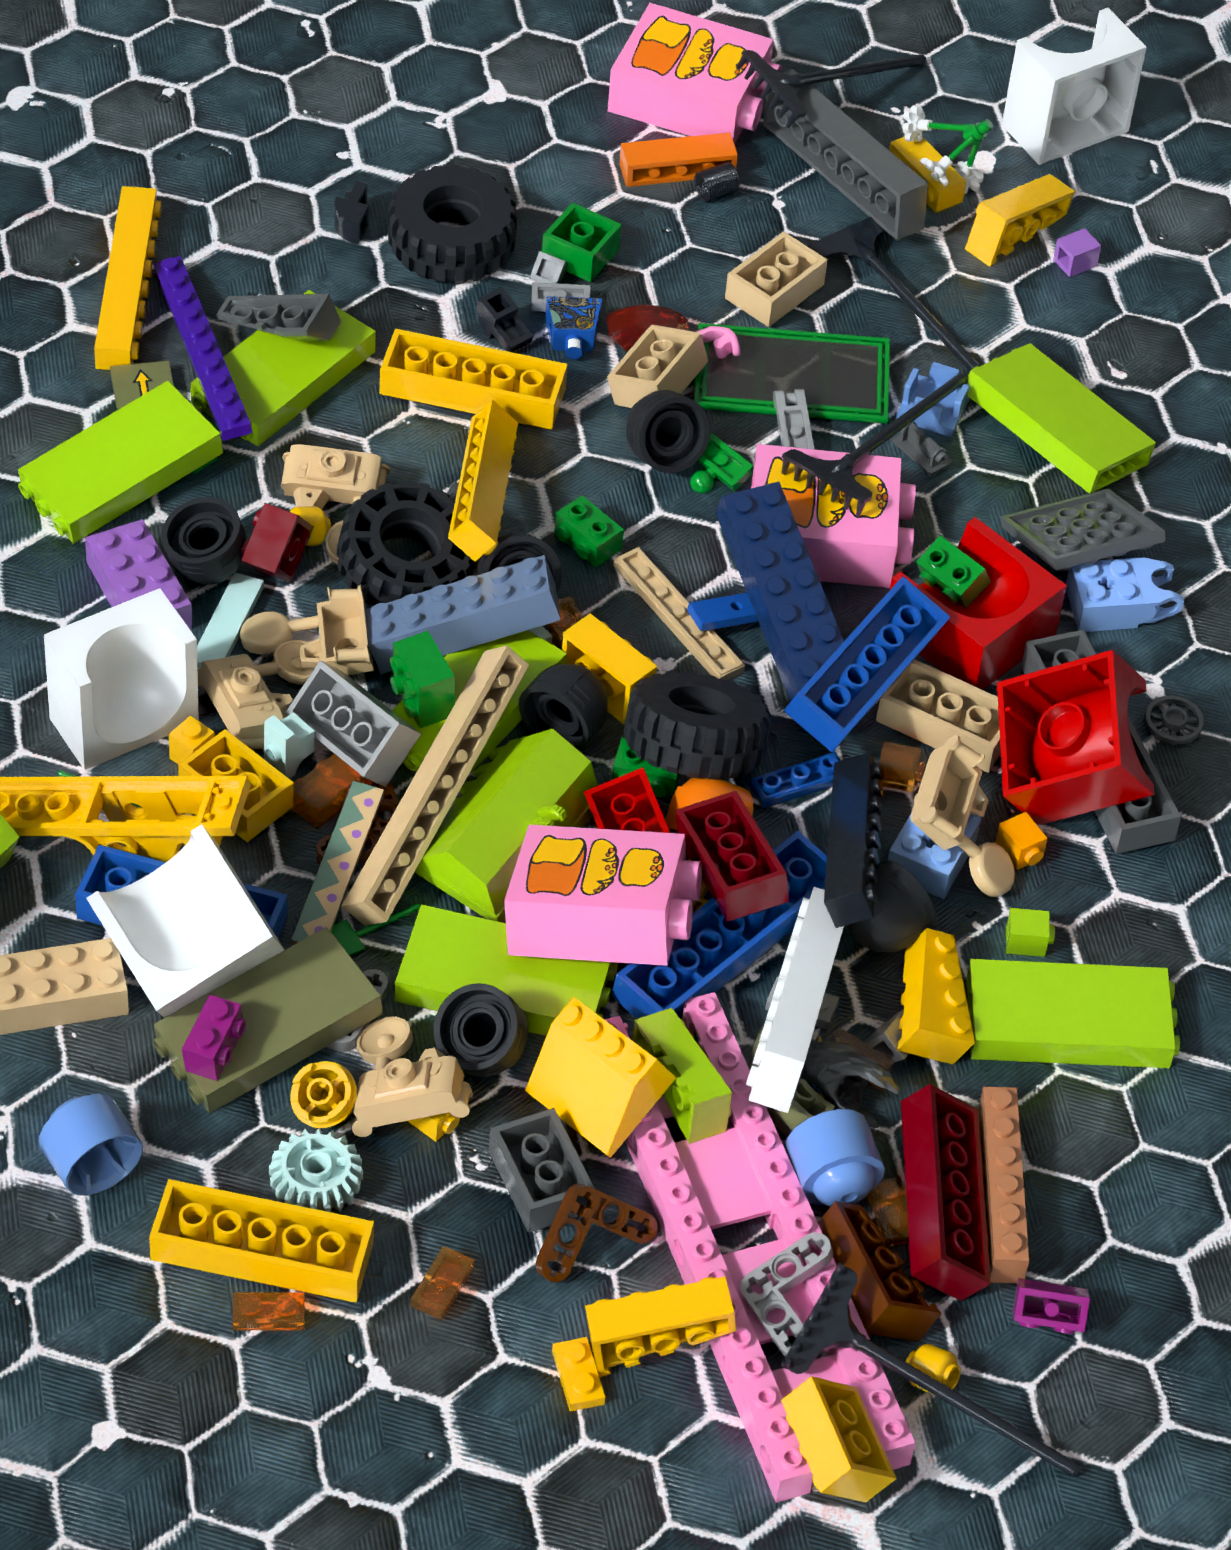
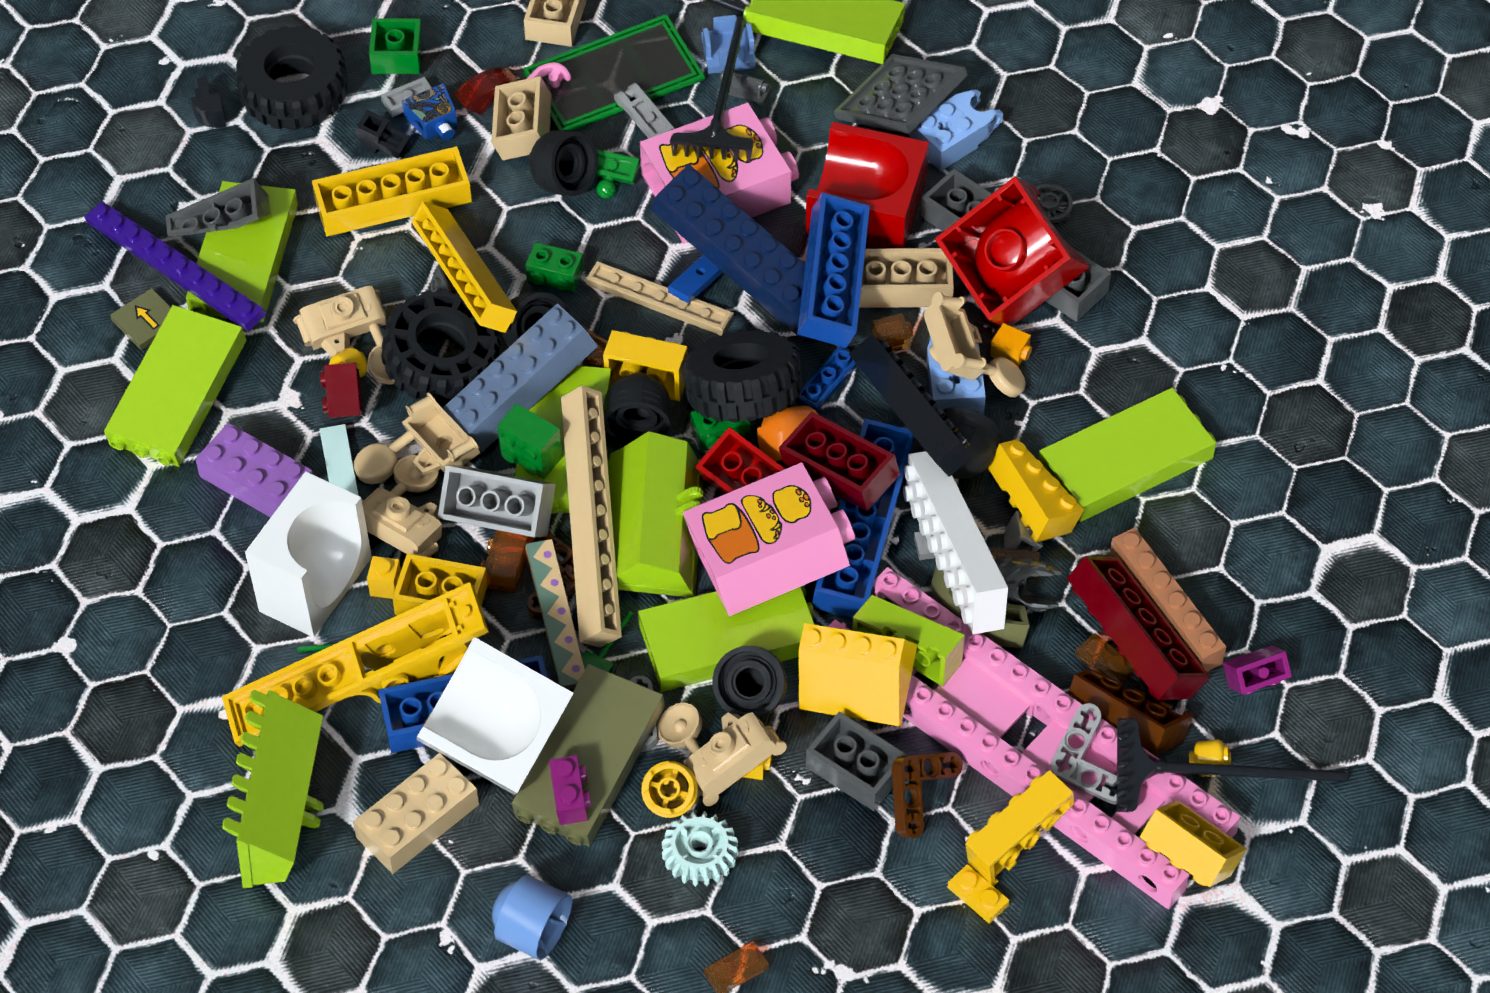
camera: 25 degrees left, 5 degrees up
(126, 277) = (73, 238): yellow brick -> none
(204, 540) = (288, 415): black piece -> none
(261, 1240) = (700, 920): yellow brick -> none
(287, 743) = (456, 539): light aqua brick -> none
(442, 1283) = (843, 880): clear orange plate -> none
(548, 269) = (384, 79): plate -> none
(835, 1157) = (1052, 643): medium blue piece -> none
(952, 572) = (838, 171): green brick -> none
(1028, 932) = (1060, 410): lime brick -> none

